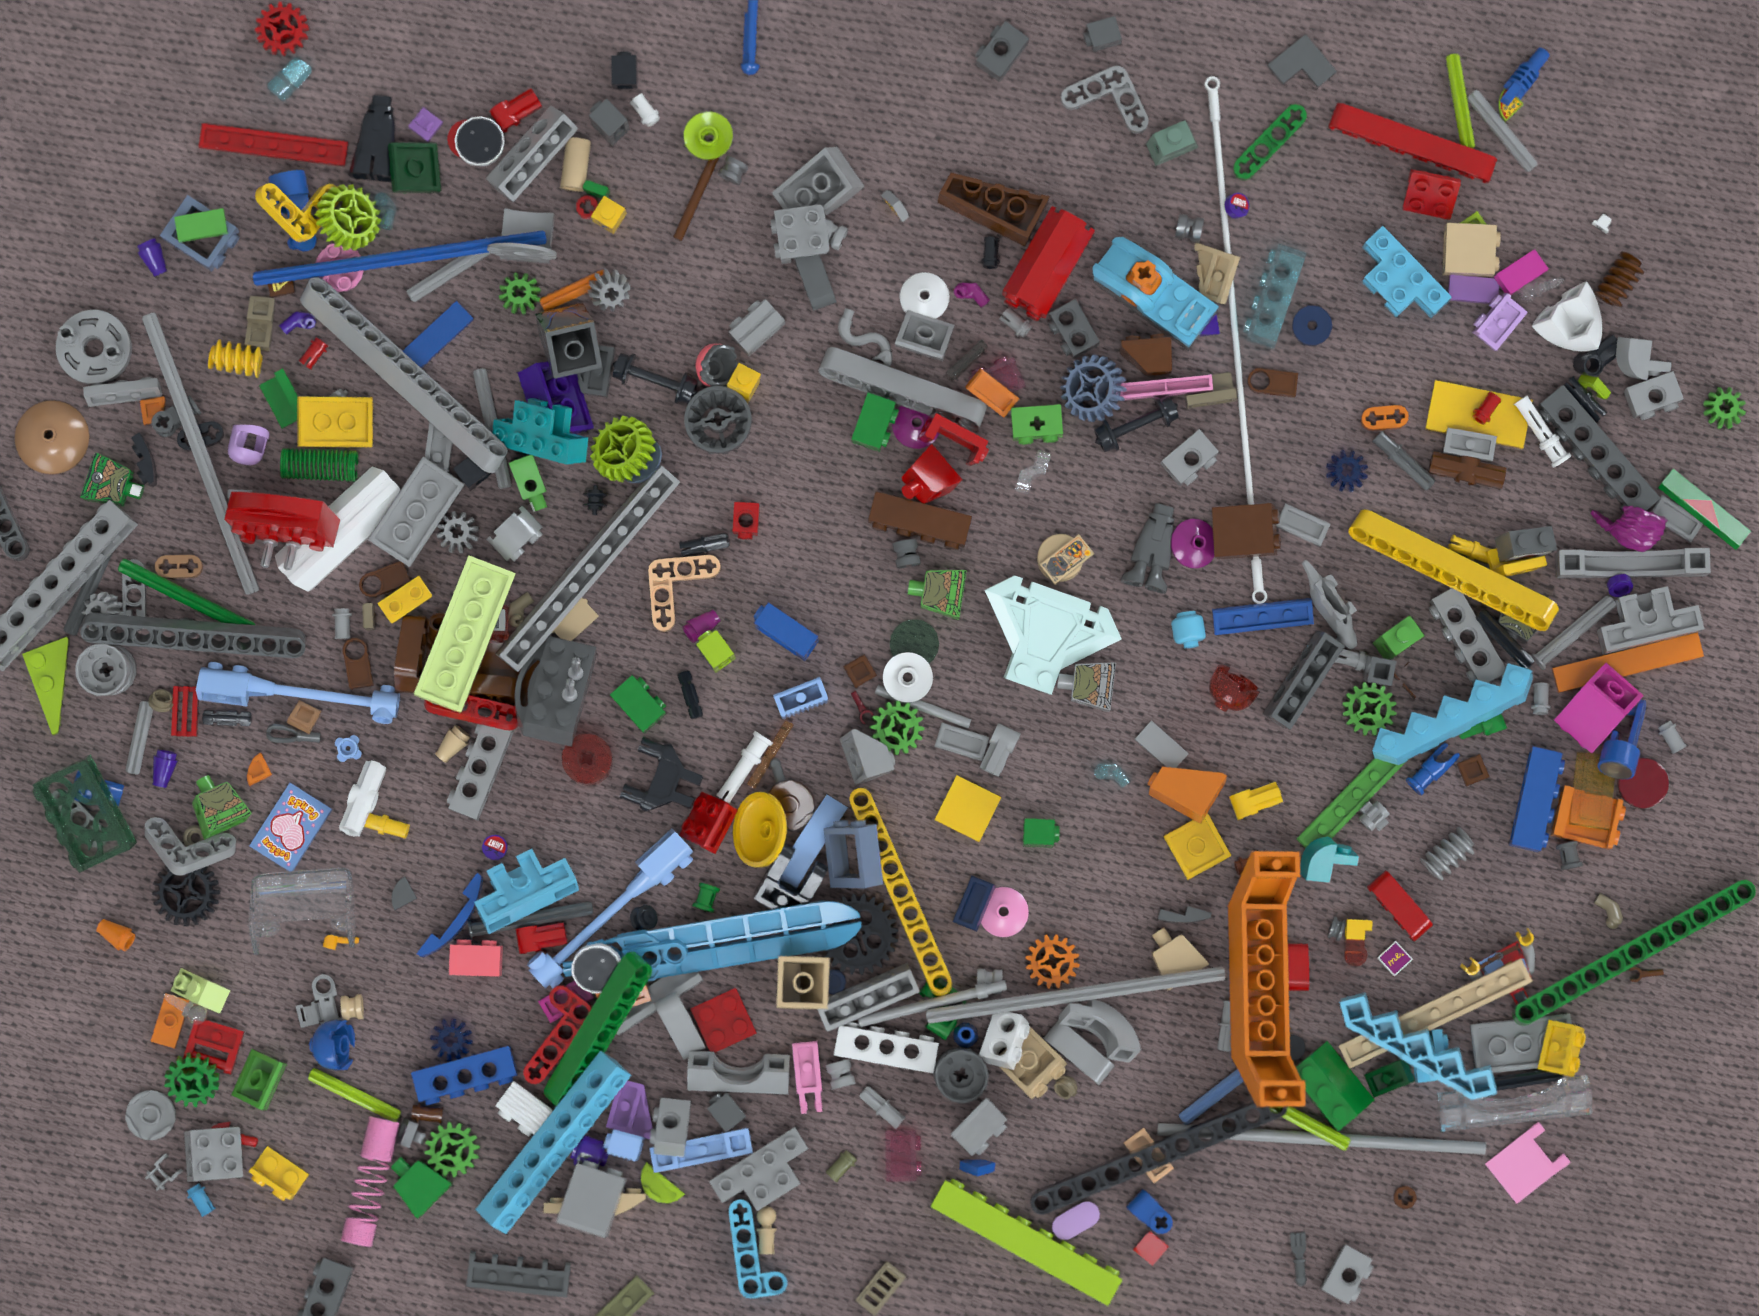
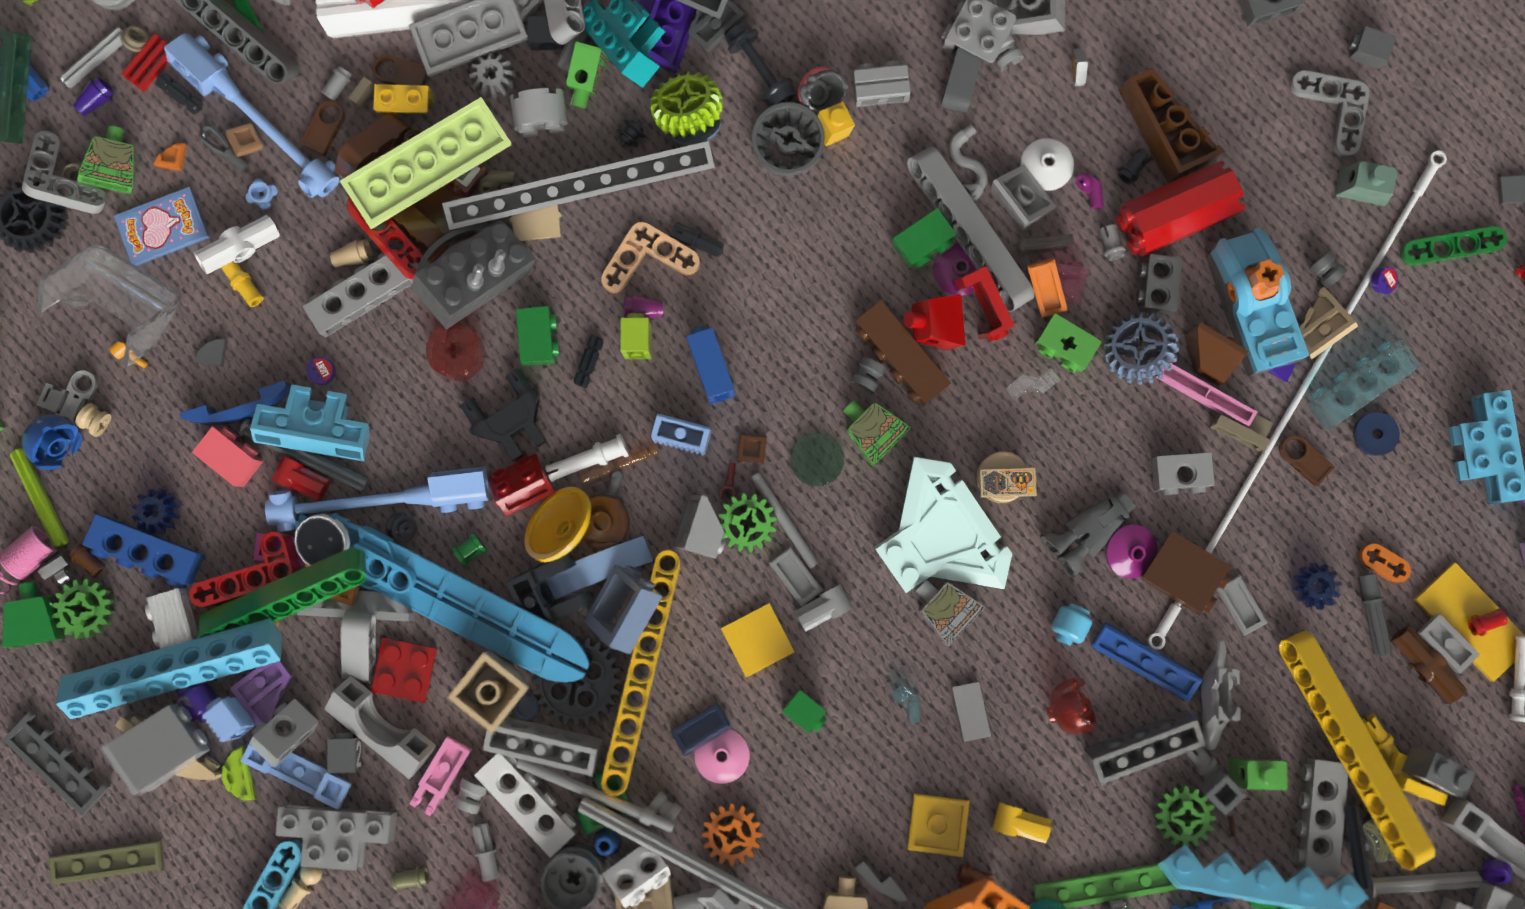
camera: 35 degrees right, 0 degrees up
(742, 509) = (753, 233): red brick -> none
(911, 690) = (774, 484): white dish -> none
(1107, 437) = (1191, 414): black piece -> none
(1187, 790) = (965, 769): orange slope -> none

